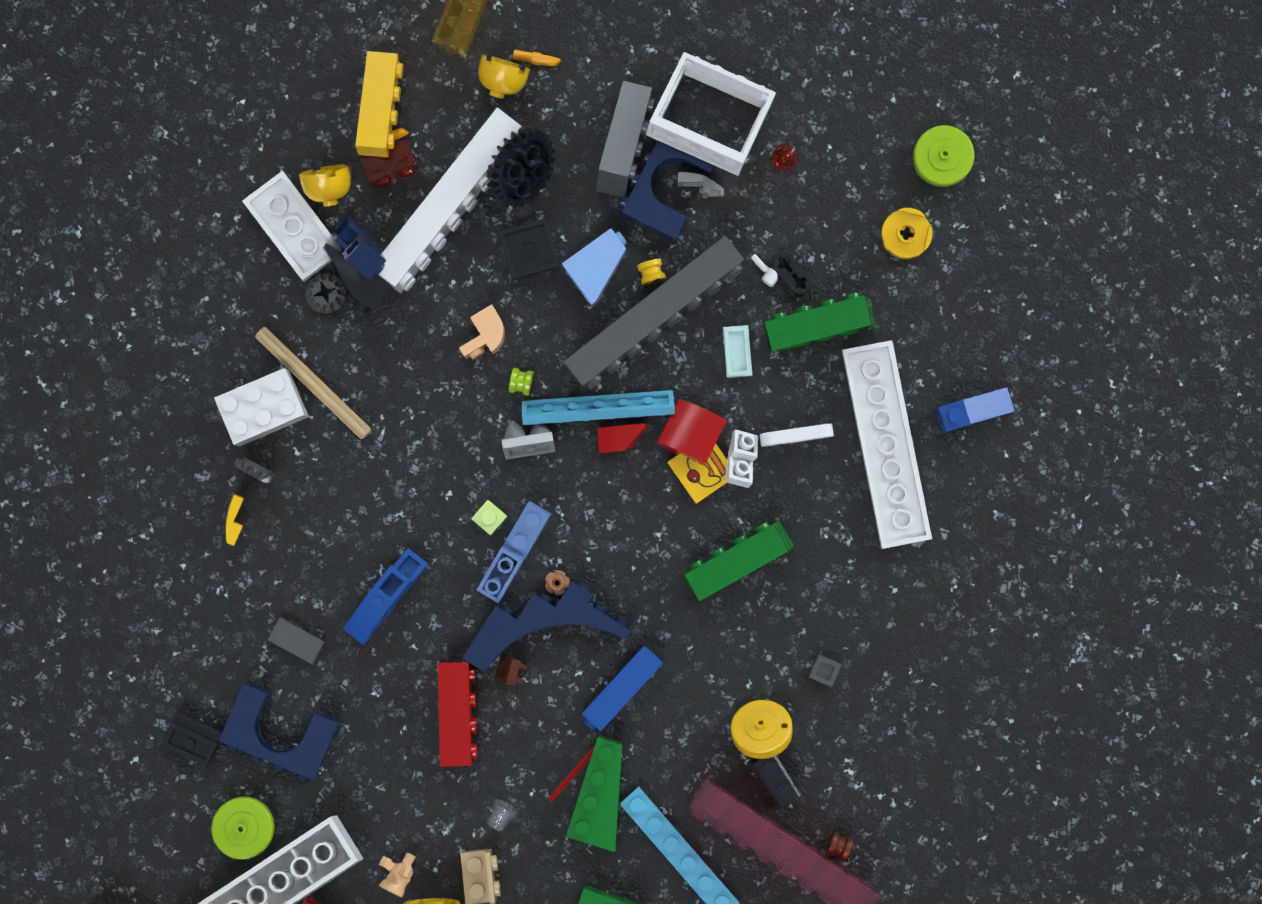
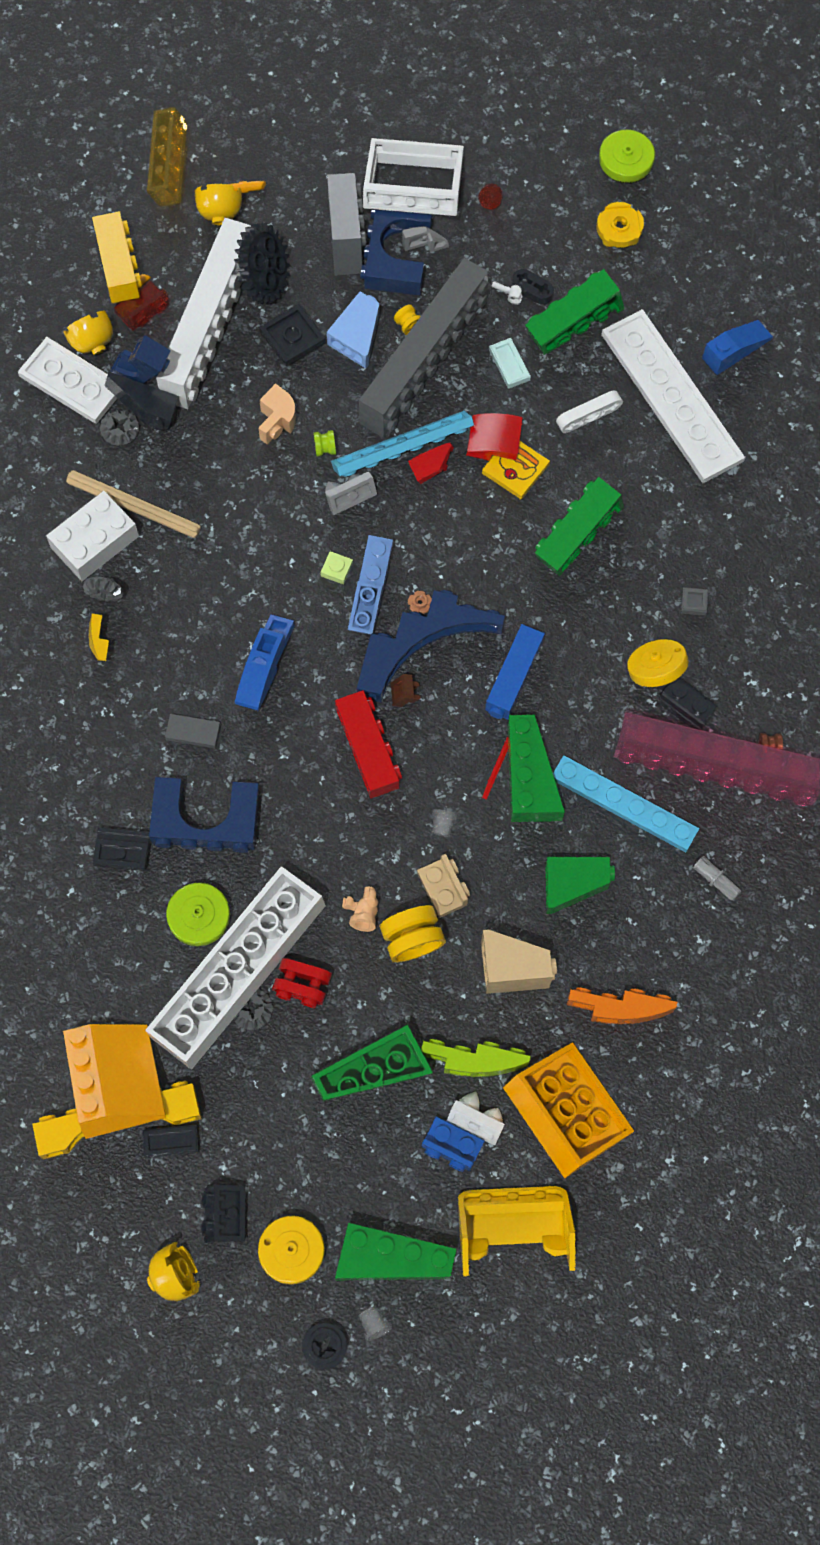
camera: 20 degrees left, 15 degrees down
(740, 459) = (546, 444): white slope -> none

